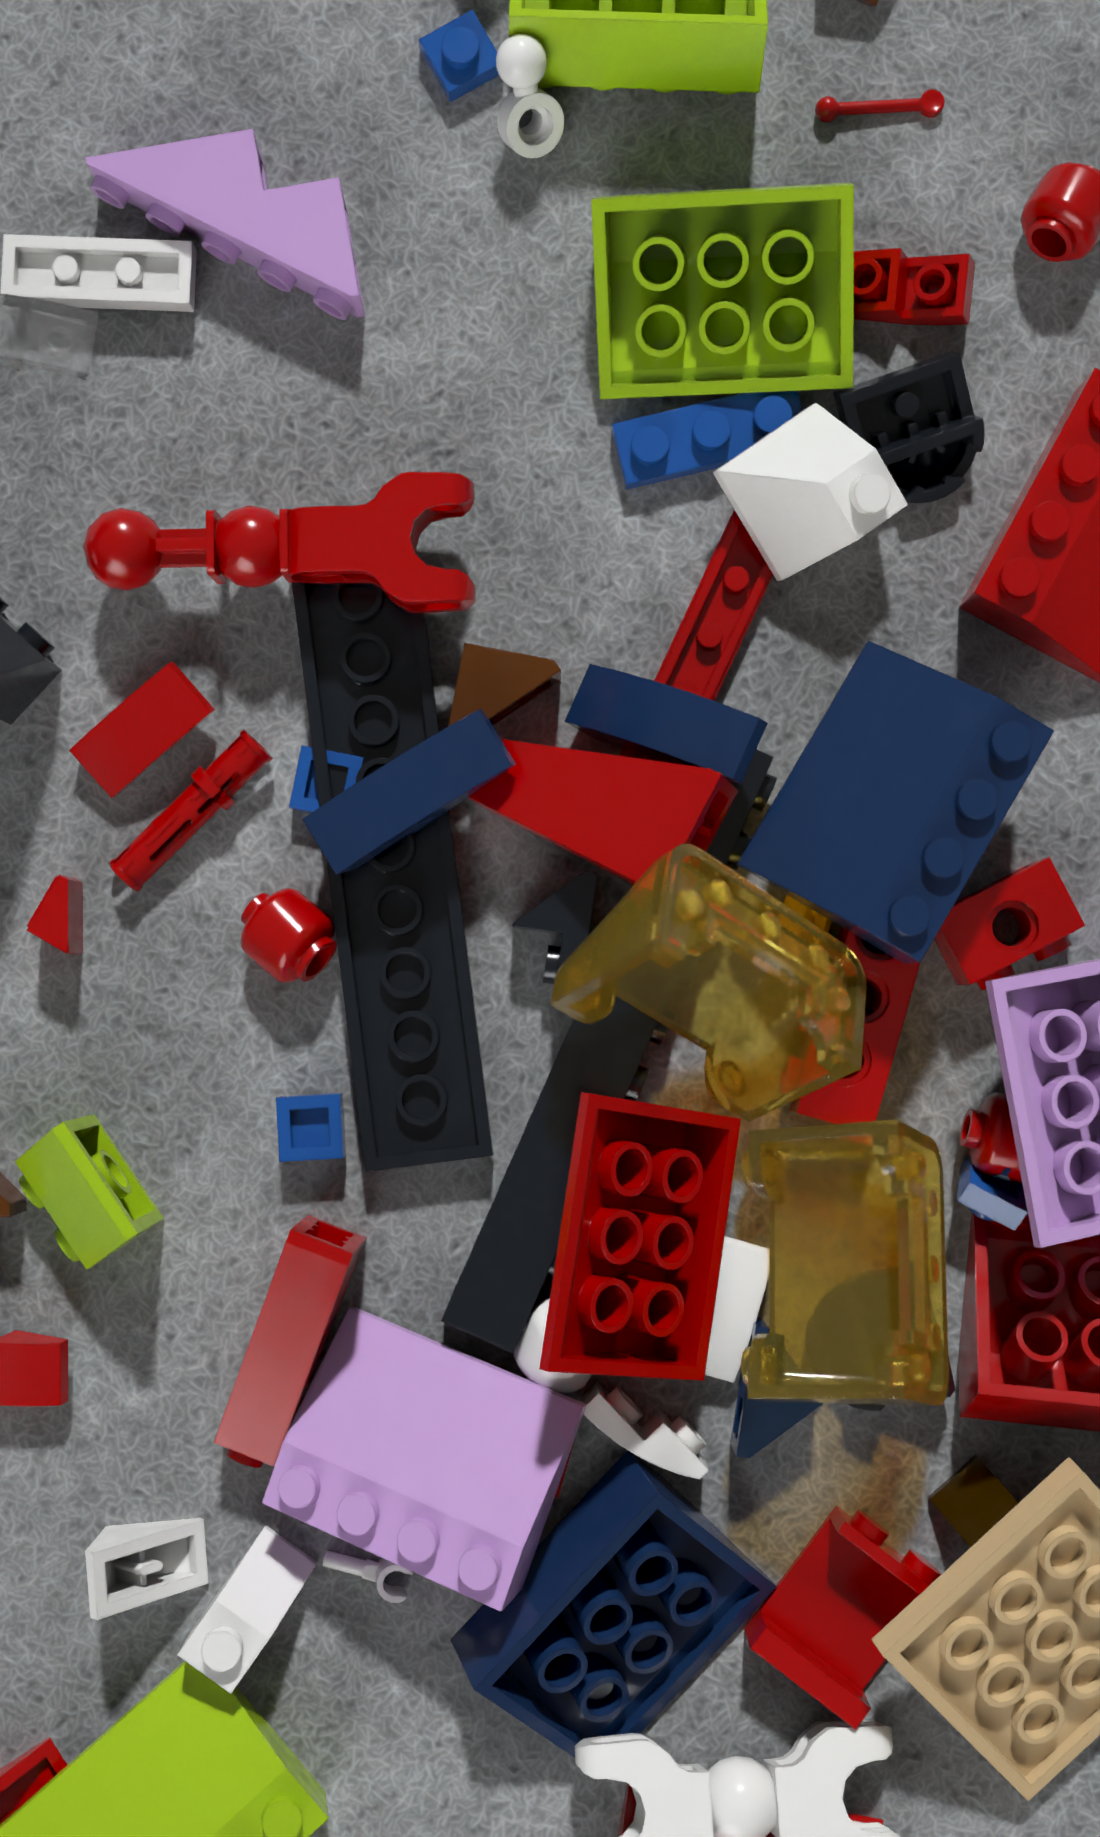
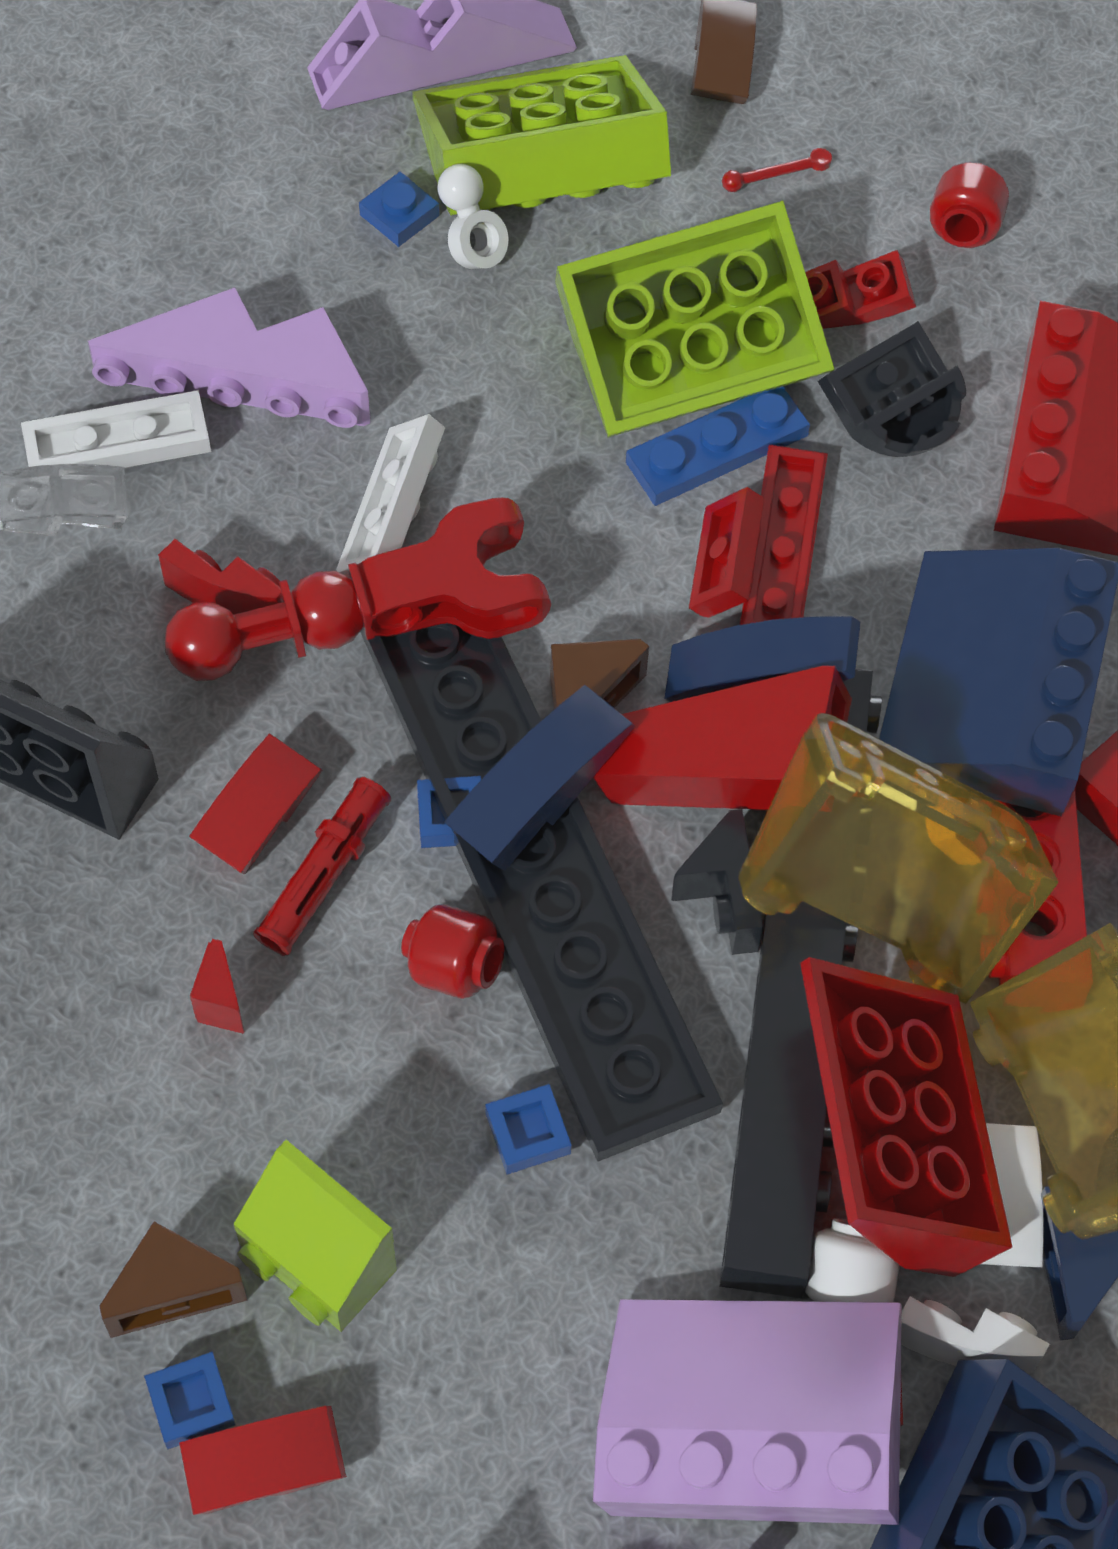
camera: 20 degrees left, 25 degrees down
(173, 487) = (200, 579): none -> red slope
(288, 1339) = (569, 1335): red slope -> none
(357, 421) = (393, 490): none -> white plate
(676, 572) = (727, 553): none -> red plate
(809, 490) = (825, 455): white slope -> none

